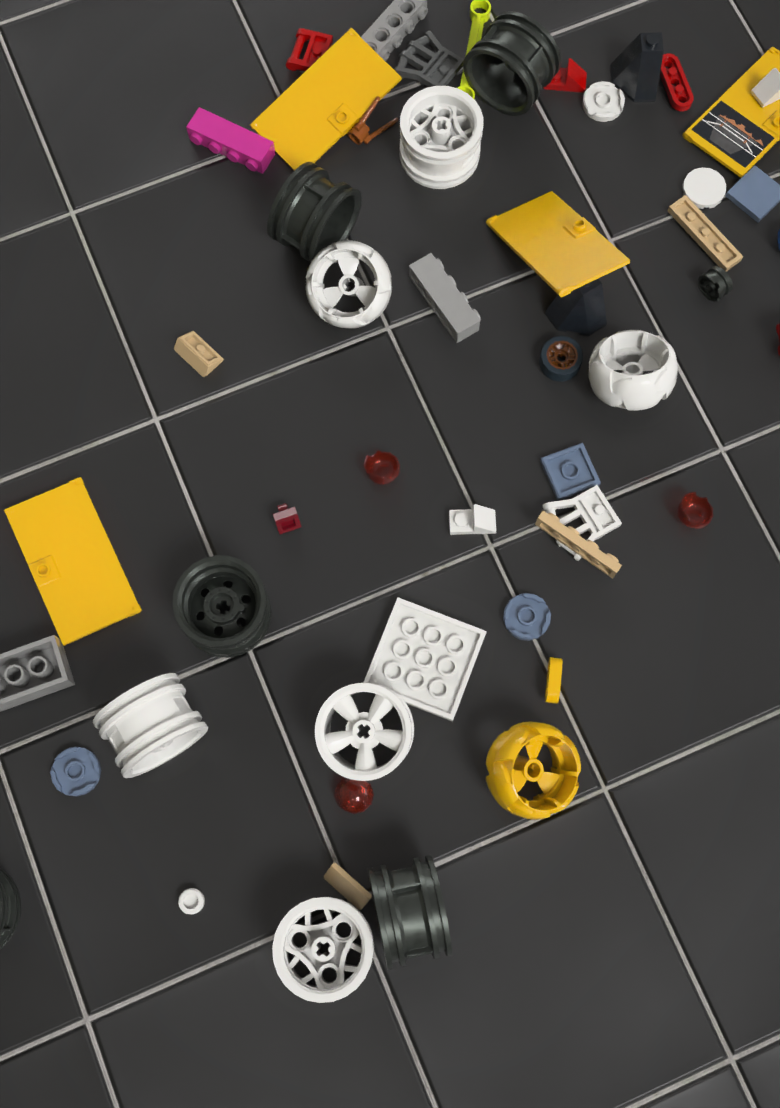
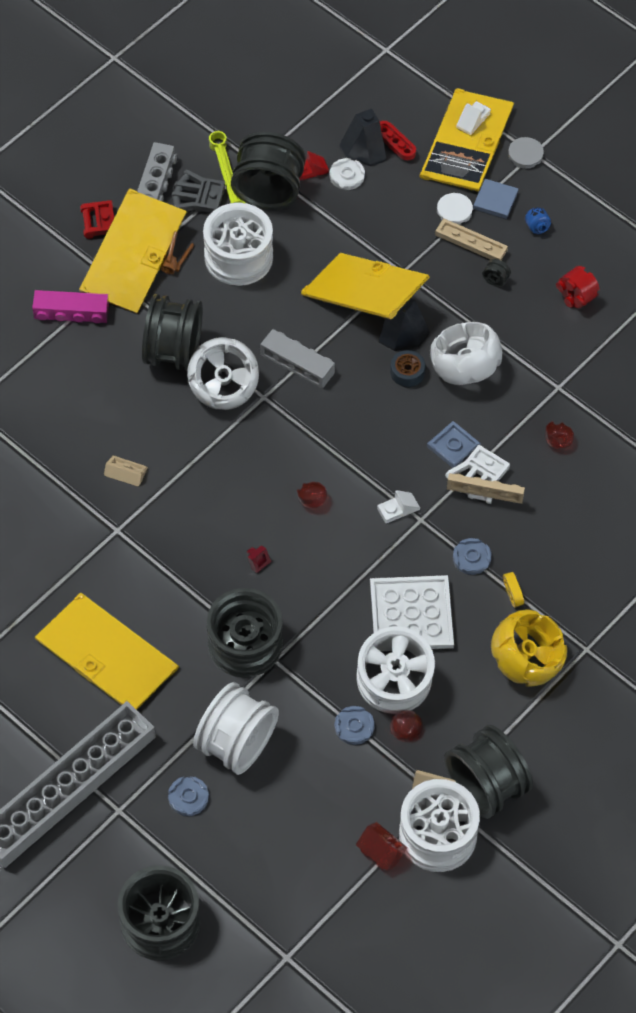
camera: 25 degrees left, 15 degrees down
(191, 901) = (323, 845): white tile -> none
(250, 938) = (381, 846): none -> clear red brick
(297, 767) = (354, 725): none -> sand blue tile

